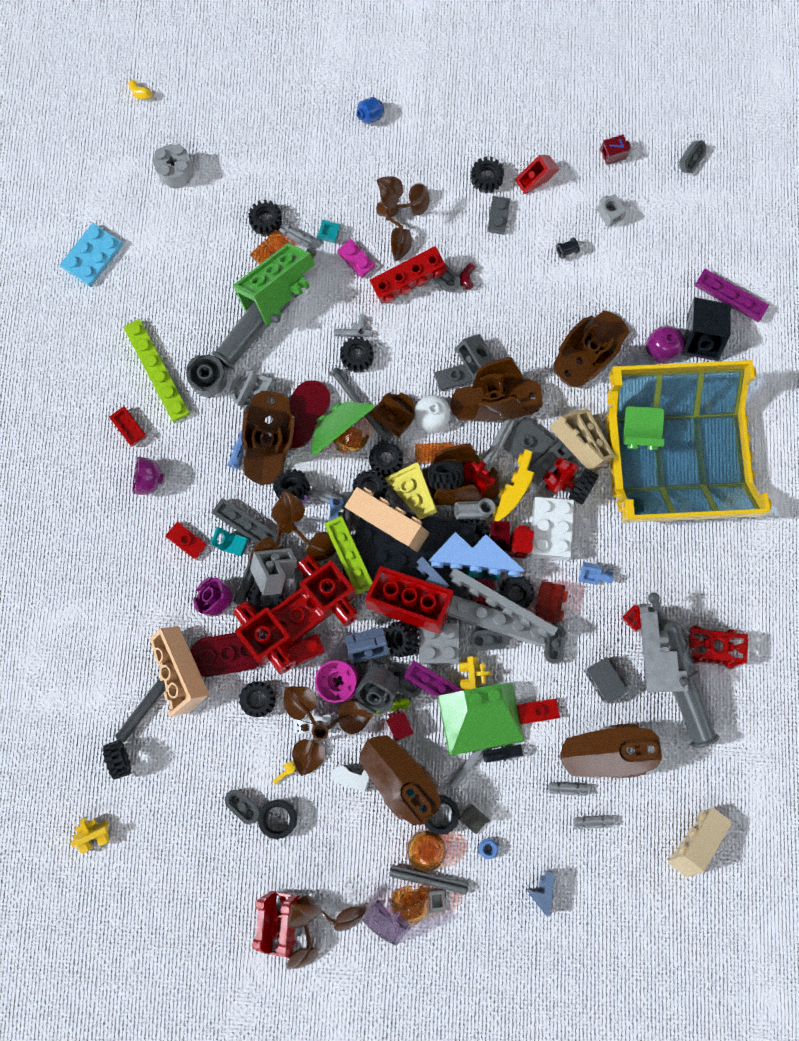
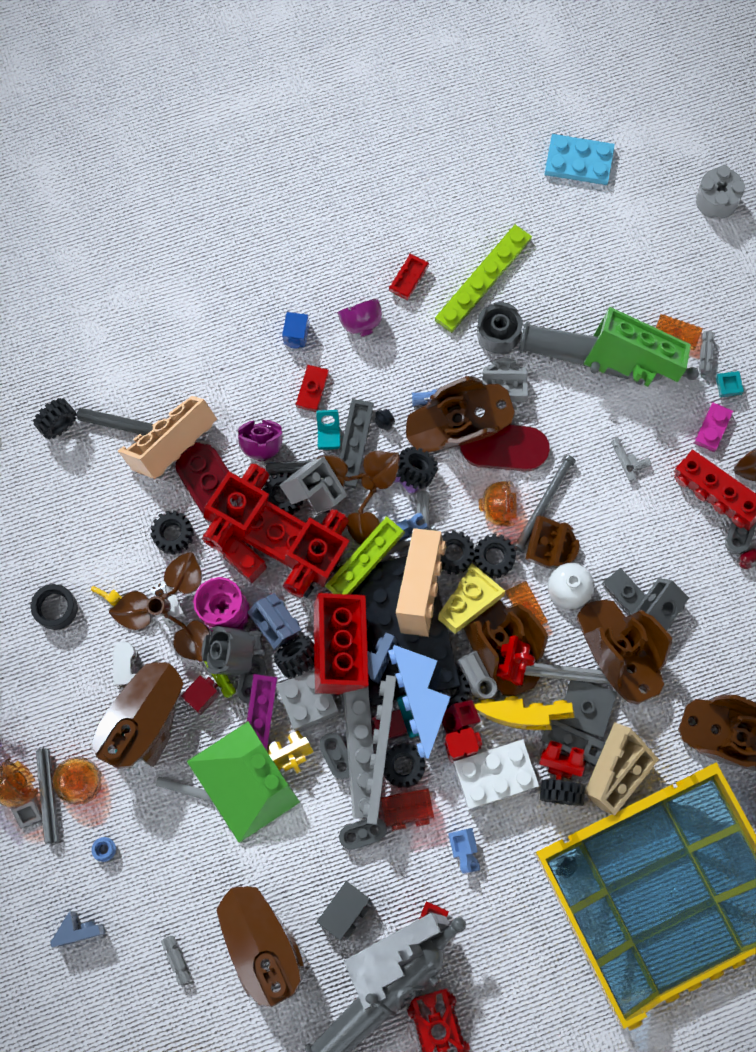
camera: 75 degrees right, 5 degrees down
(131, 533) = (295, 330): none -> blue brick
(239, 494) = (384, 419): none -> black plate
(241, 808) = (54, 566): dark grey plate -> none
(261, 208) = (718, 302): black tyre -> none
(337, 422) = (505, 481): bright green slope -> none
(360, 344) = (604, 462): black tyre -> none
(446, 475) = (498, 623): black tyre -> none
(451, 825) = (121, 798): black tyre -> none
(473, 818) = (130, 819): clear smoke panel -> none
(503, 753) = (214, 823): black axle -> none
(538, 711) = (278, 845): red plate -> none
(568, 789) = (202, 915): light grey axle -> none
(643, 427) = (666, 836): bright green bracket -> none

